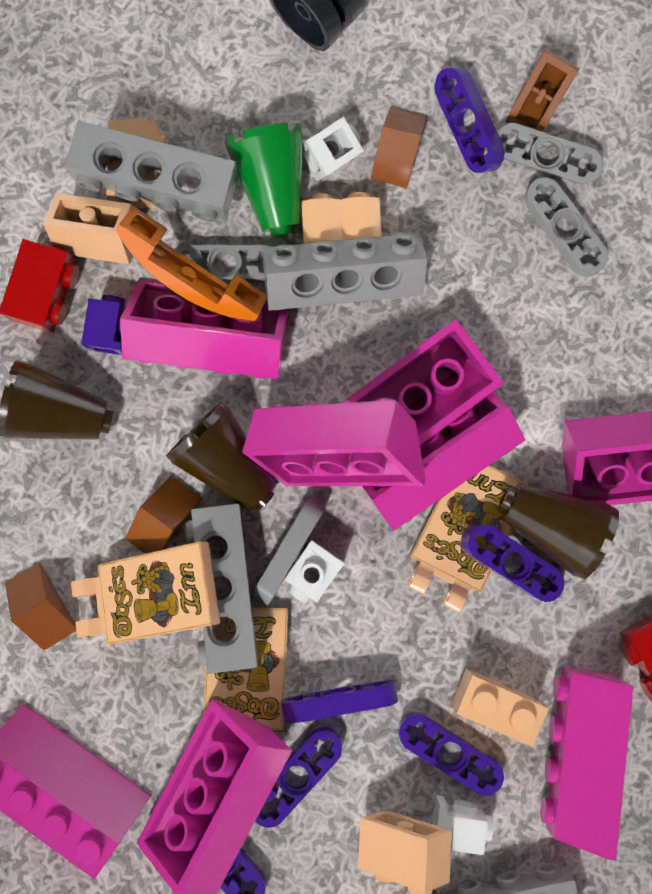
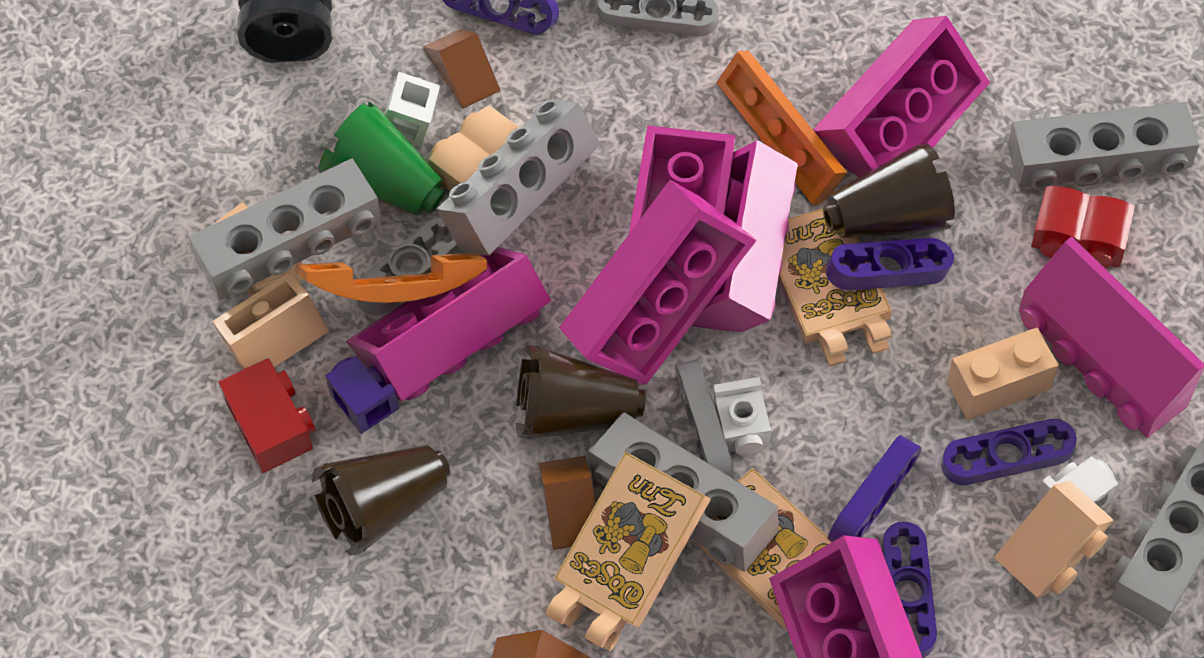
camera: 45 degrees left, 25 degrees down
(551, 394) = (781, 126): none -> orange plate

